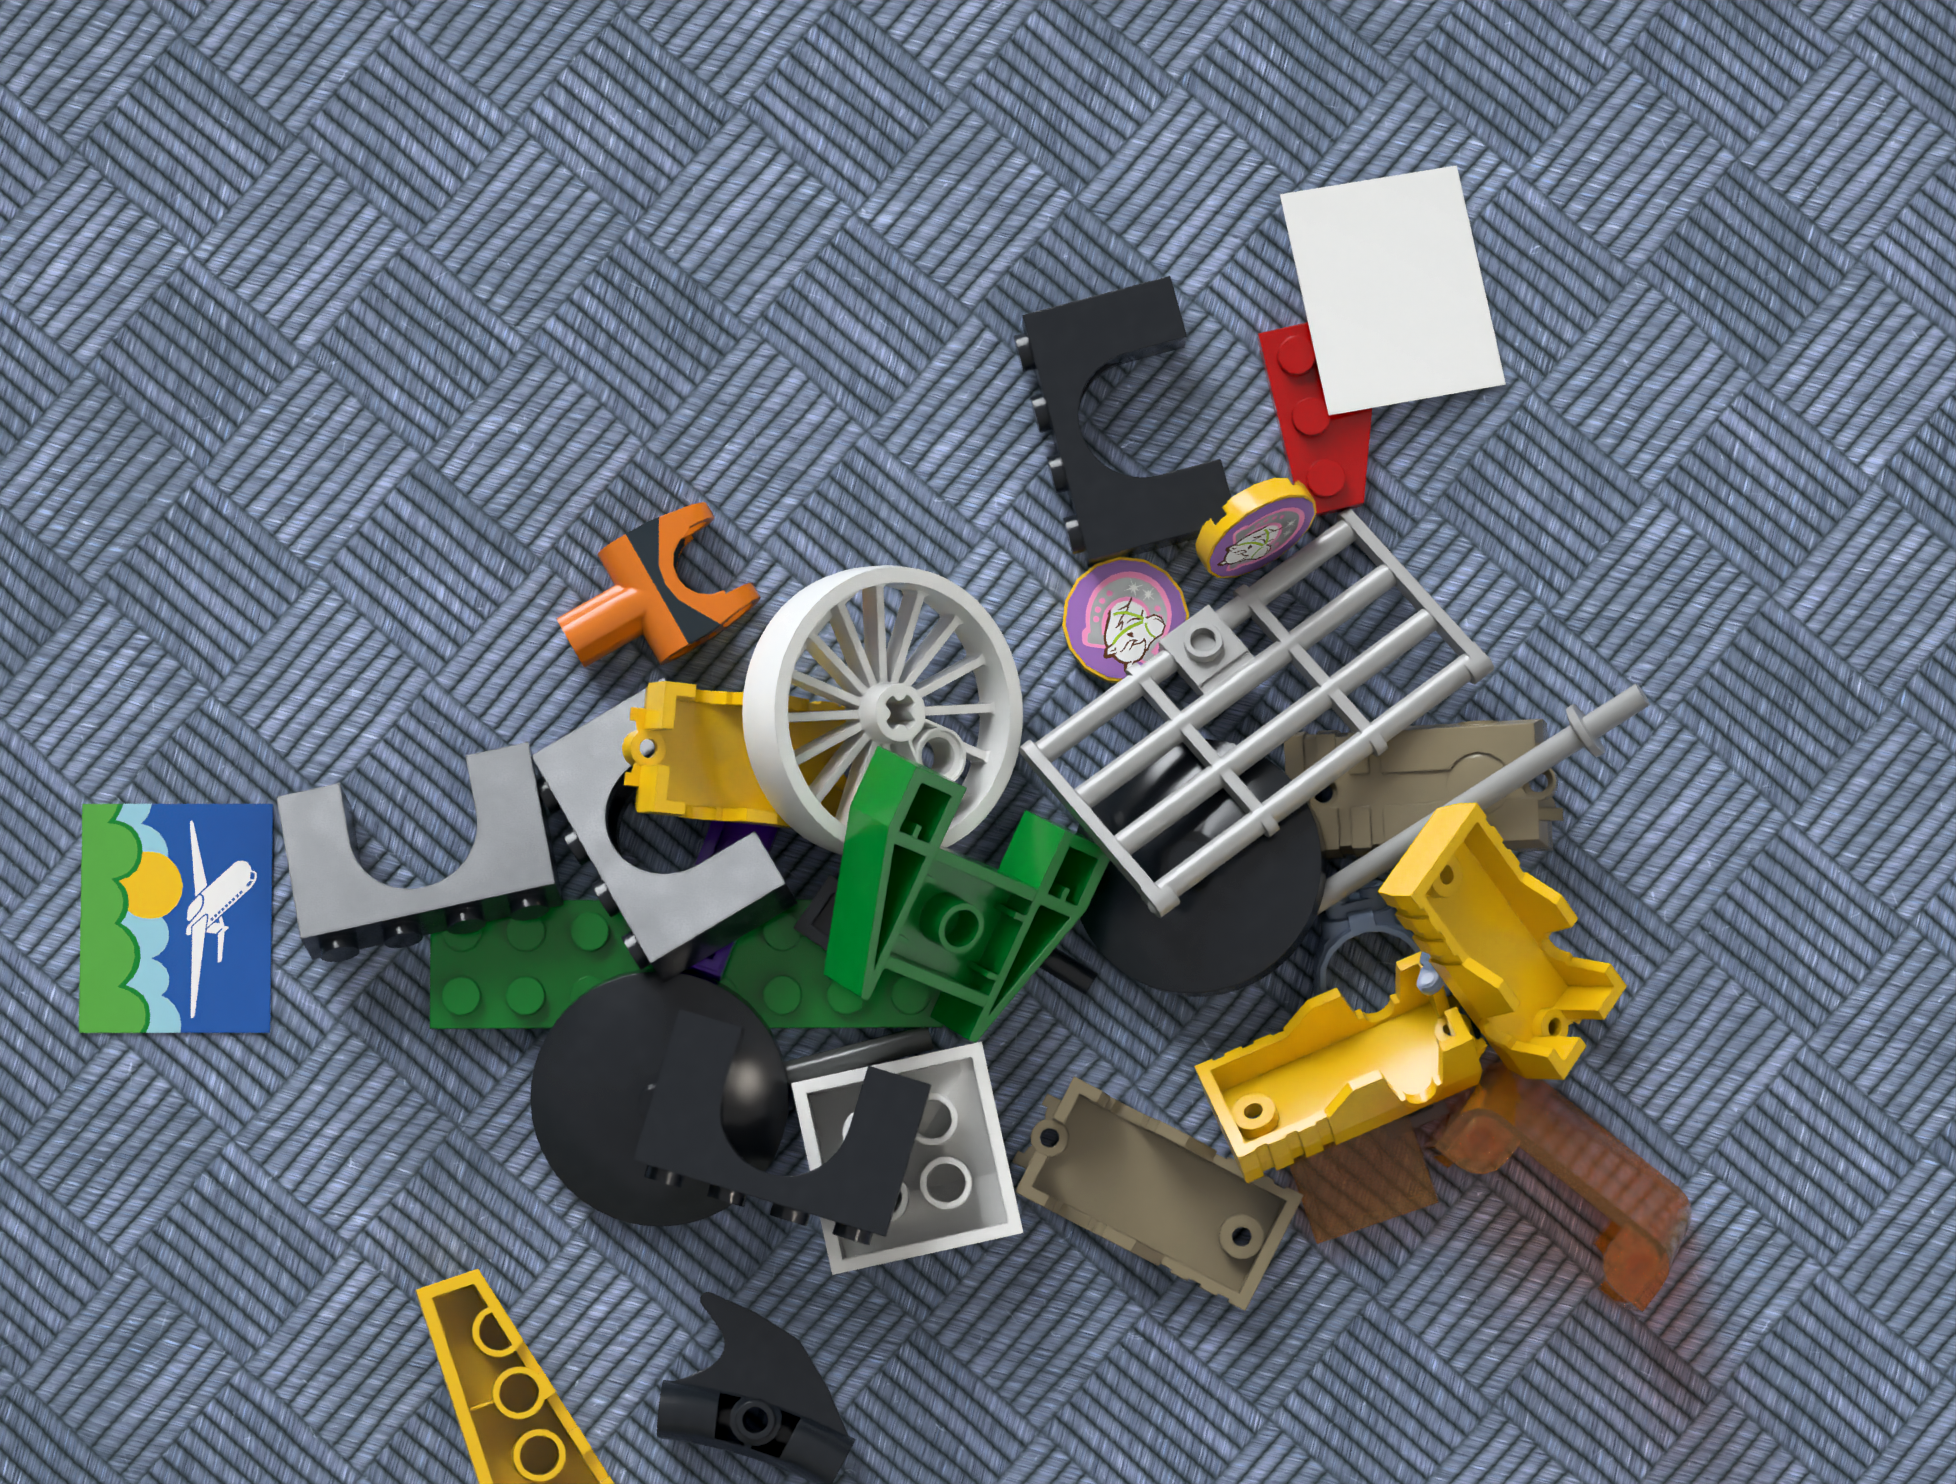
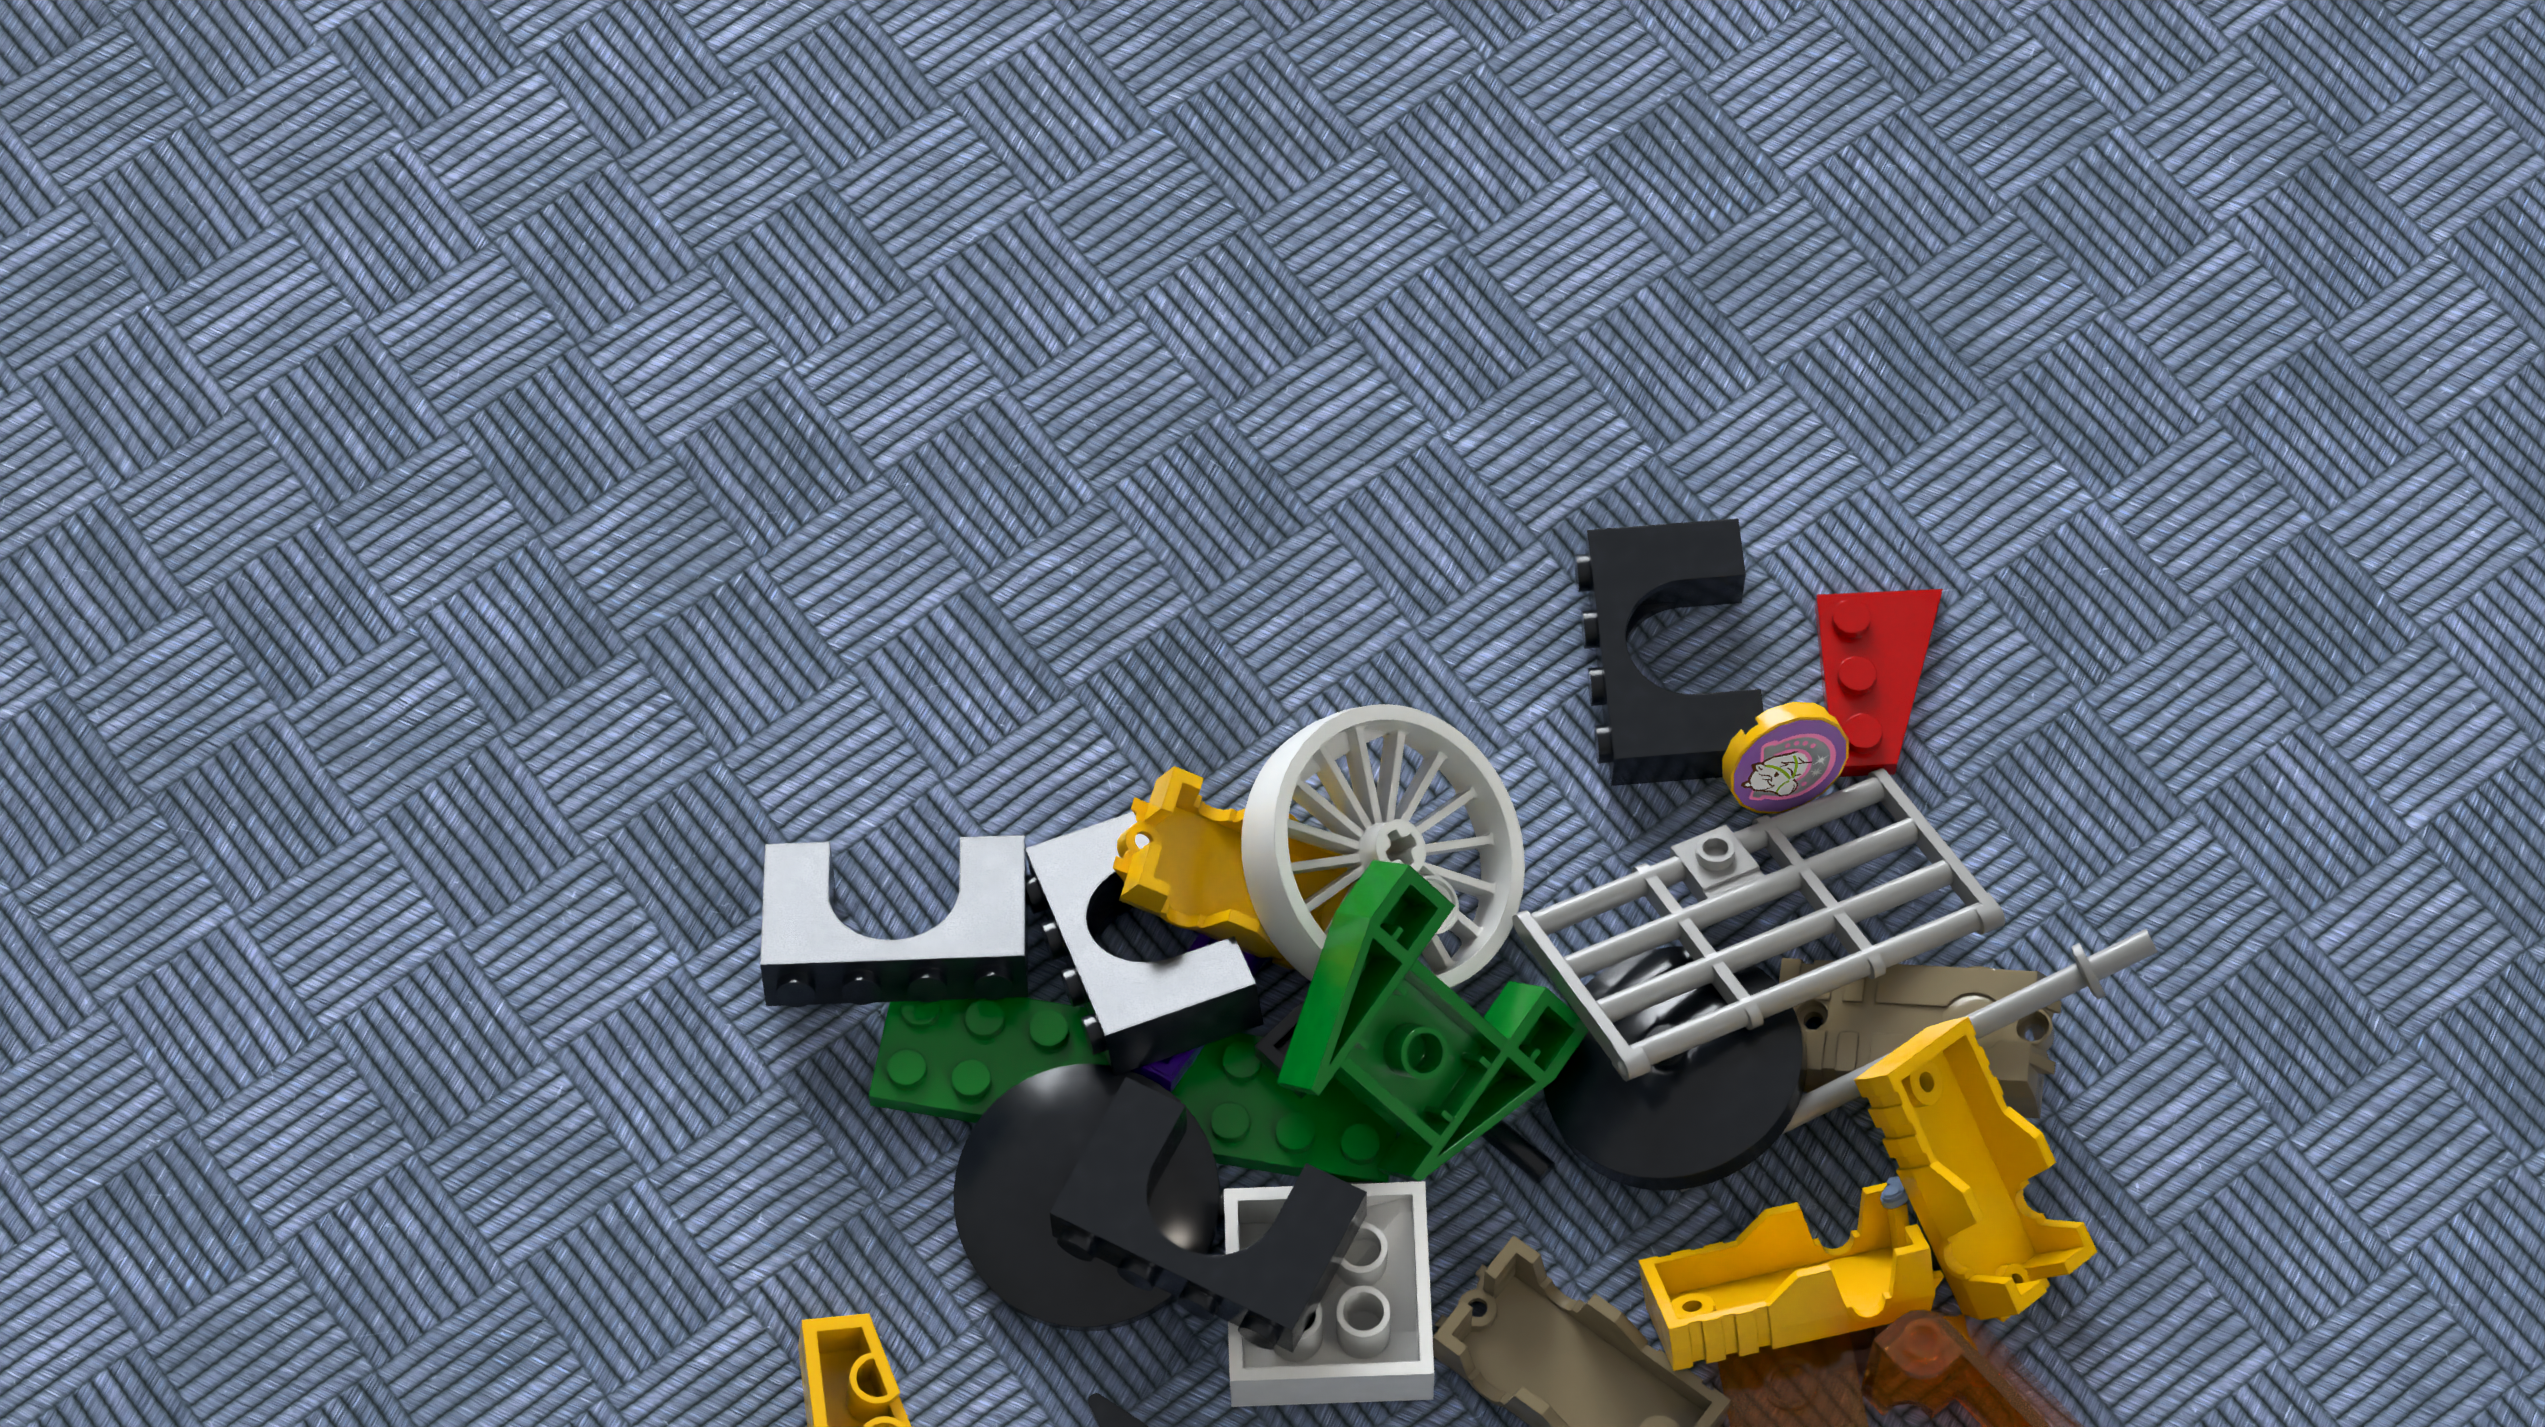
camera: 10 degrees right, 20 degrees down
(176, 918) = (638, 958): sticker -> none
(651, 597) = (1174, 727): orange connector -> none
(1120, 615) = (1634, 824): tile -> none
(1351, 917) = (1822, 1143): sand blue helmet -> none
(1392, 290) = (1956, 578): white sticker -> none

